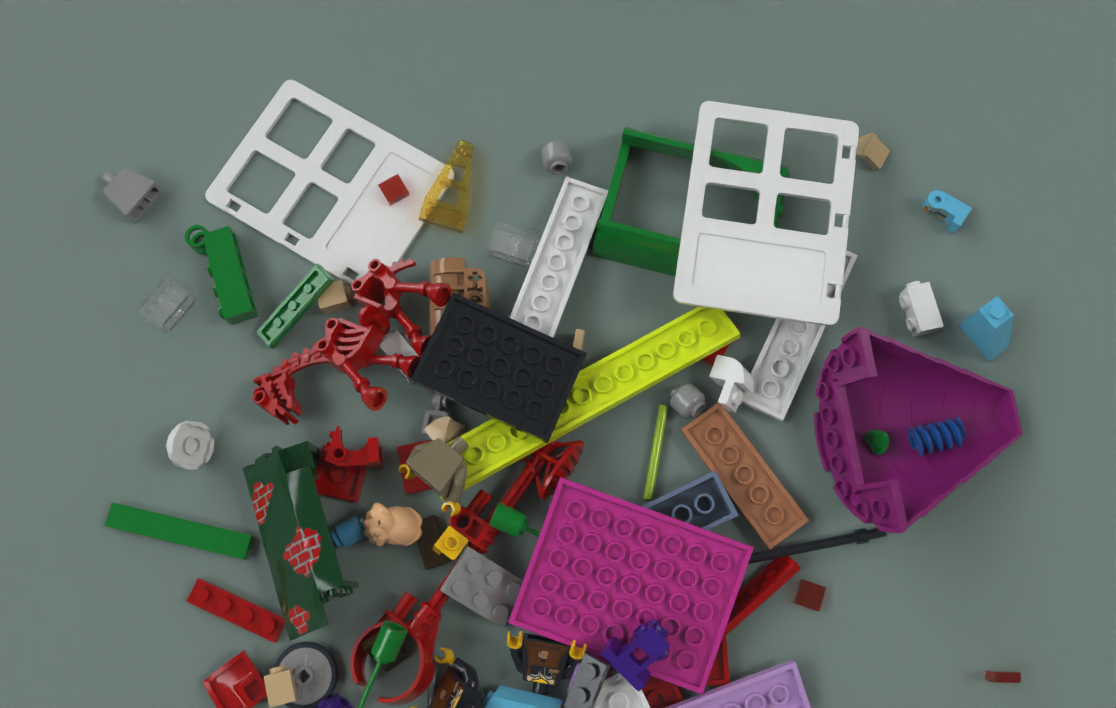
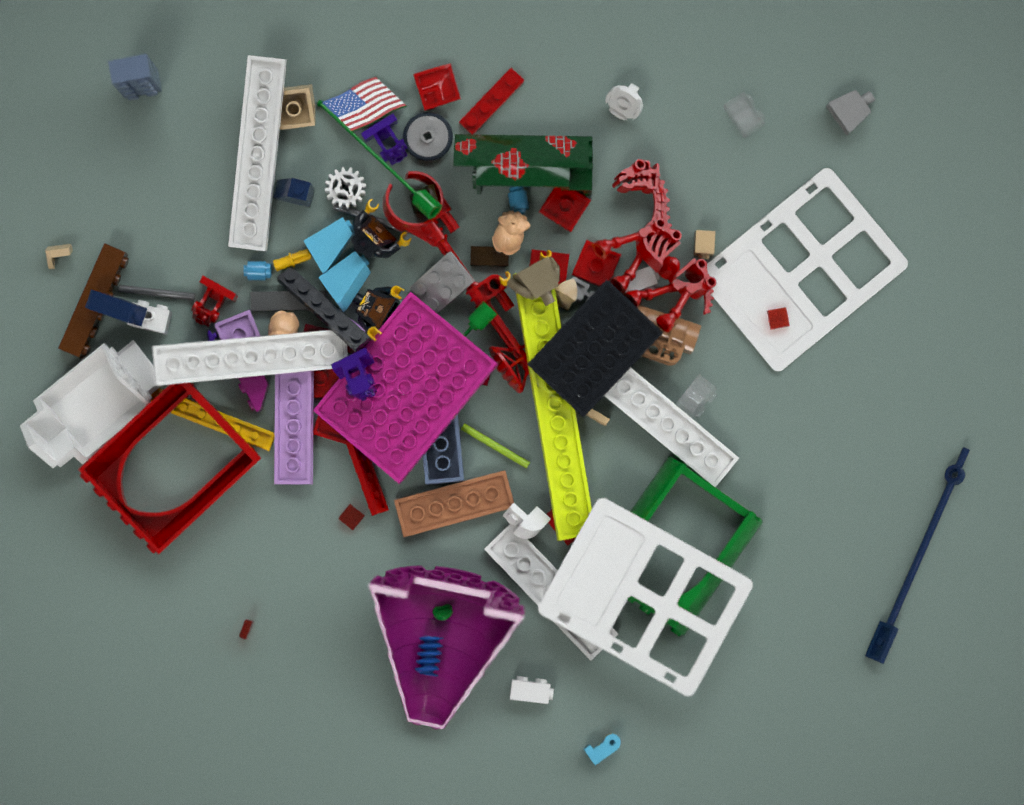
camera: 110 degrees right, 10 degrees up
(179, 531) = (565, 75): green tile -> none
(227, 270) = (755, 168): green hinge -> none
(280, 686) = (426, 118): tan brick -> none
(295, 306) = (706, 211): green tile -> none
(367, 457) = (567, 230): red tile -> none
(401, 413) = (594, 269): none -> red tile
(442, 213) = (741, 352): clear yellow plate -> none
(450, 543) = (481, 269): yellow bracket -> none
(556, 157) = (758, 456): light grey head -> none
(687, 400) = (524, 483): light grey head -> none
(859, 536) = (379, 569): black bar -> none
(872, 150) = (674, 709): tan tile -> none
(990, 328) = (494, 733): medium azure slope -> none

